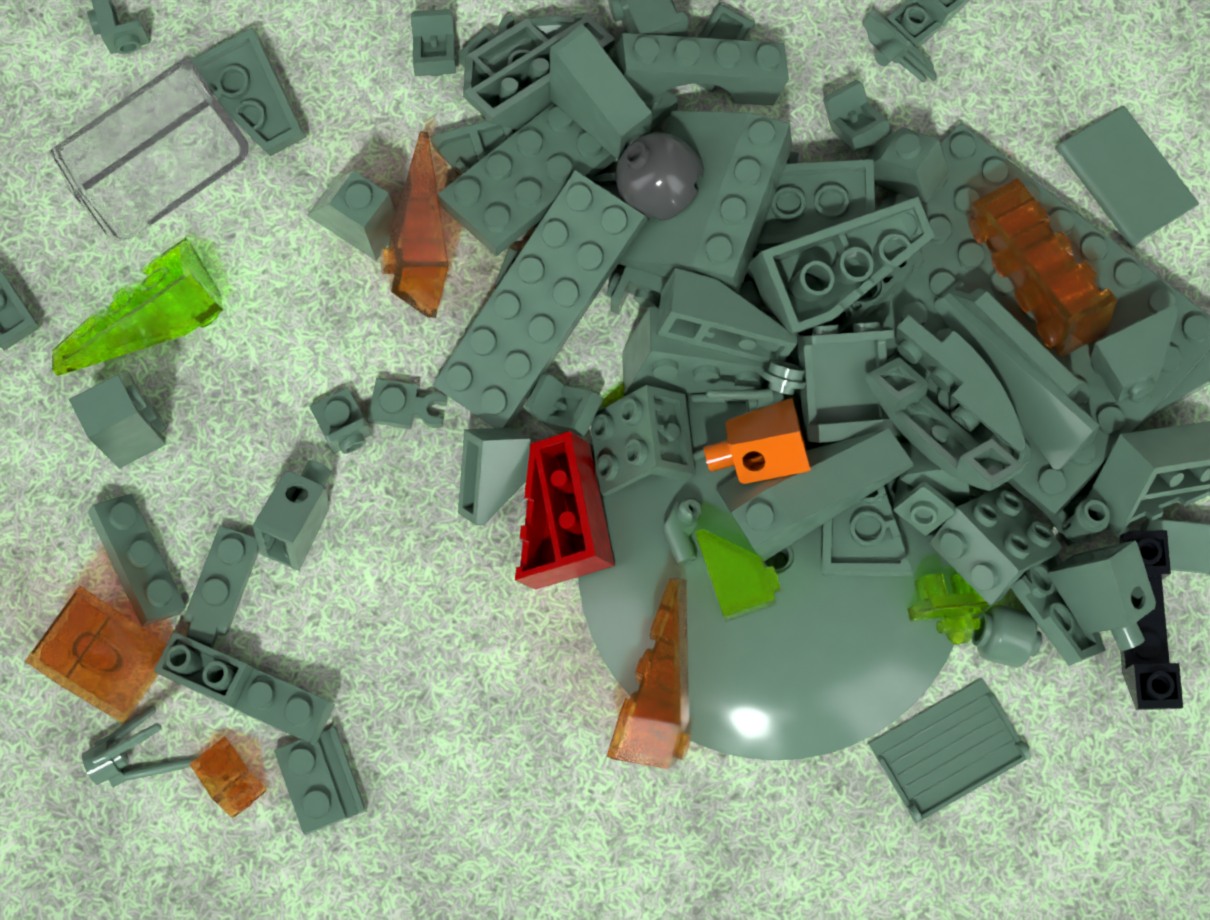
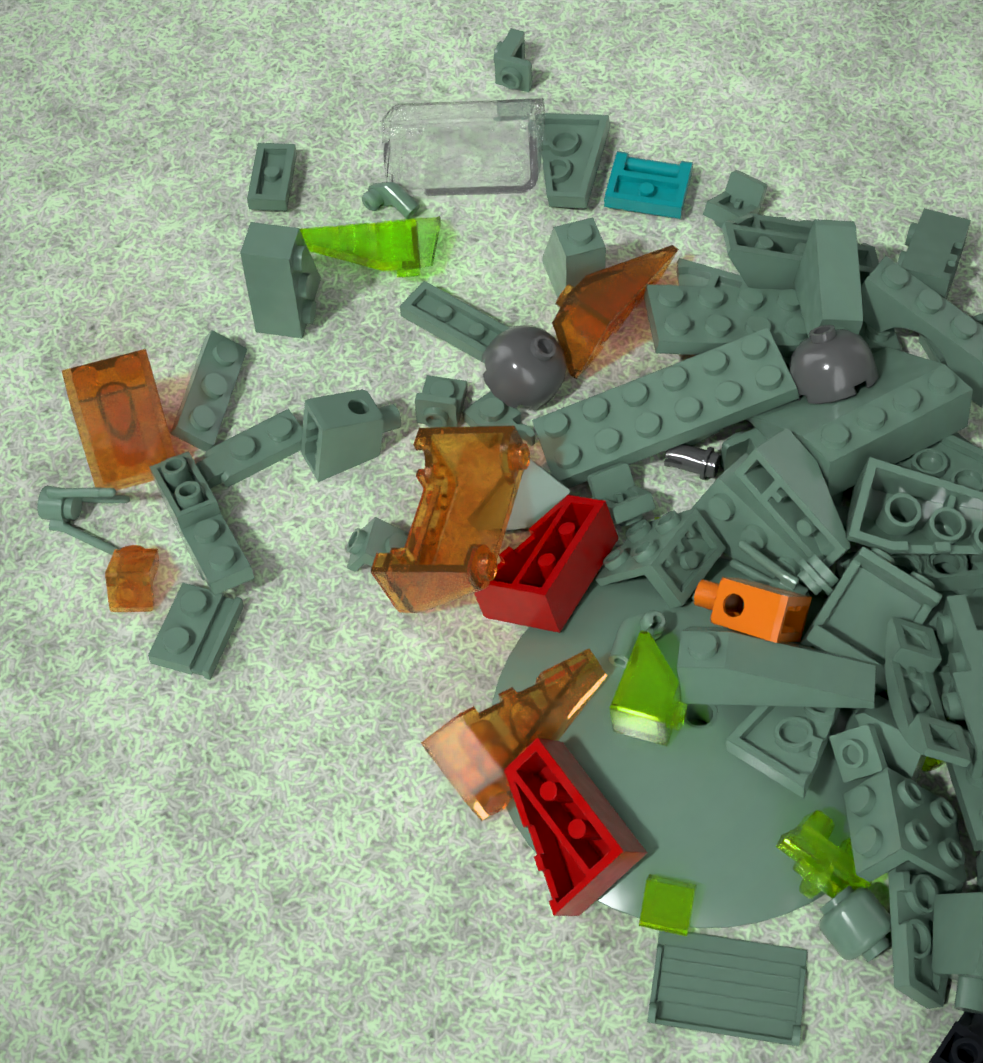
camera: 40 degrees right, 20 degrees down
(122, 246) = (390, 194): none -> sand green arm
(296, 336) = (451, 319): none -> sand green plate
(346, 83) = (648, 186): none -> teal plate
(390, 343) = (524, 366): none -> dark grey cylinder
(410, 596) = (372, 539): none -> sand green bracket
(464, 535) = (460, 517): none -> clear orange windscreen
(593, 325) = (694, 460): none -> dark grey pin
(760, 725) = (572, 825): none -> red wedge
(866, 725) = (667, 905): none -> clear neon green tile

